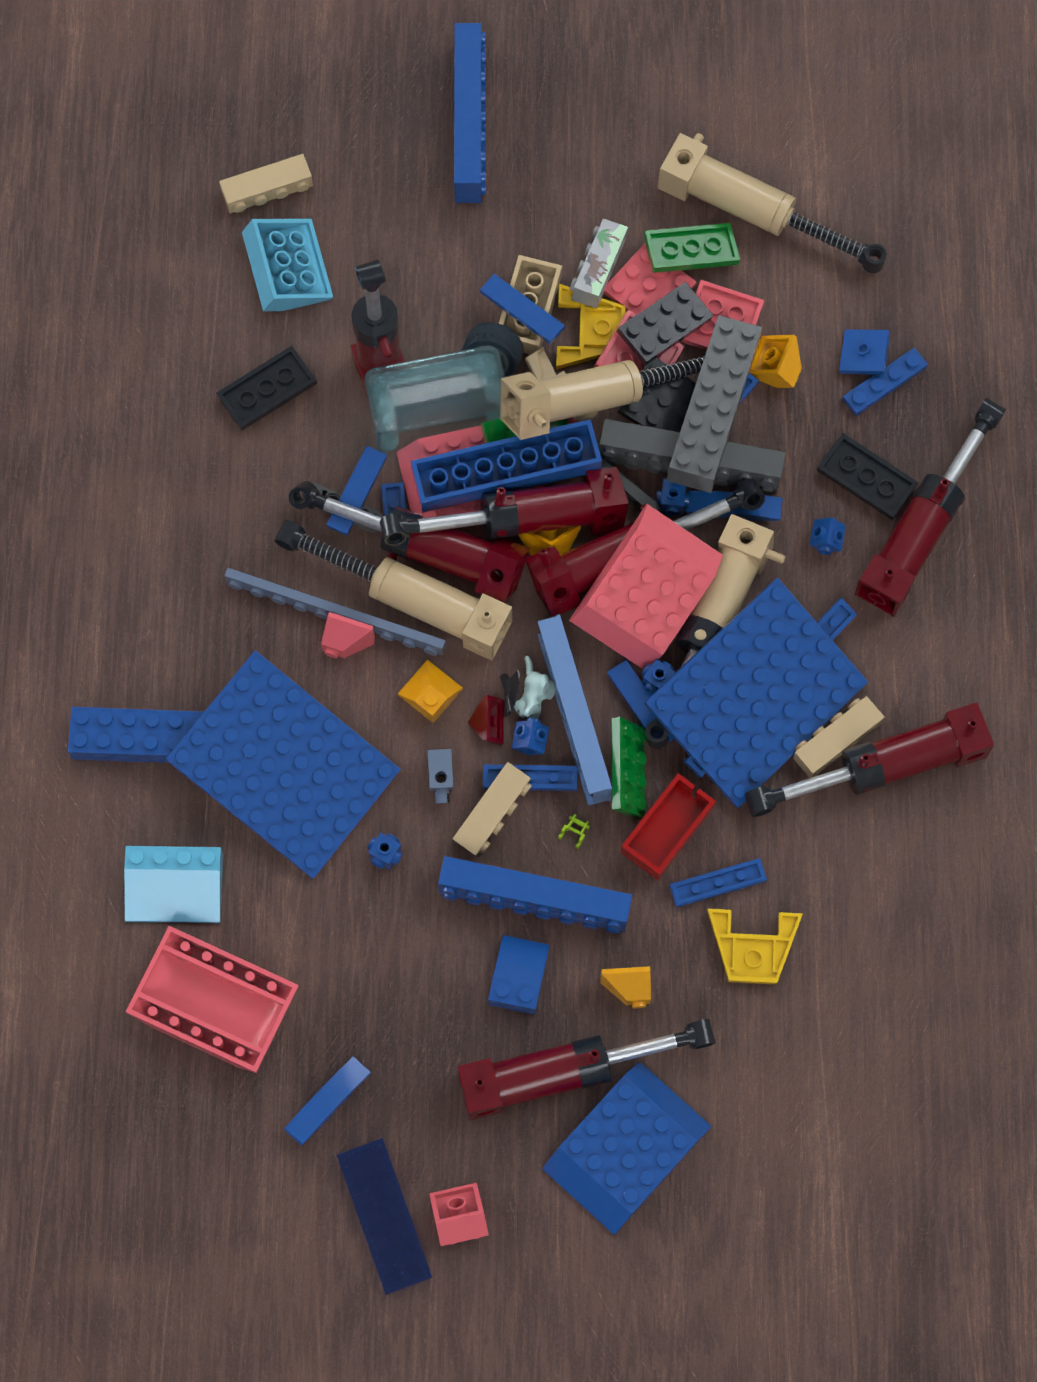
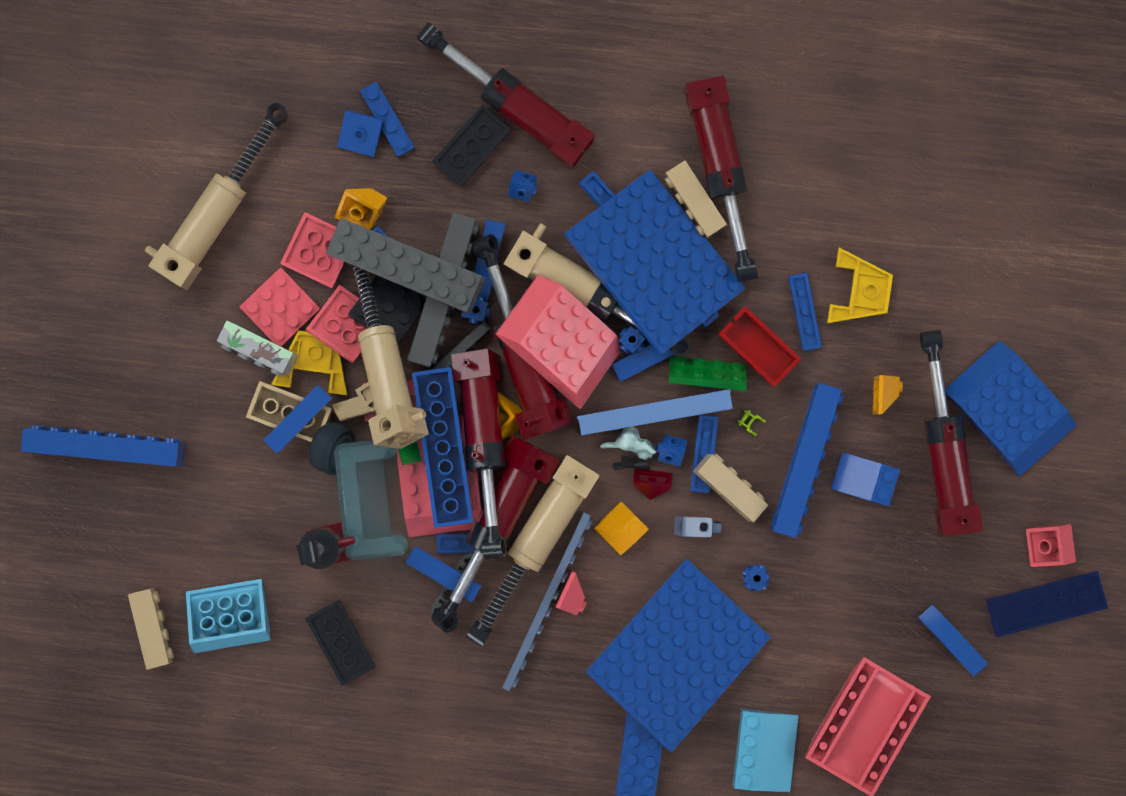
camera: 85 degrees left, 15 degrees up
(665, 323) = (321, 299): plate -> none
(691, 247) = (250, 268): green plate -> none

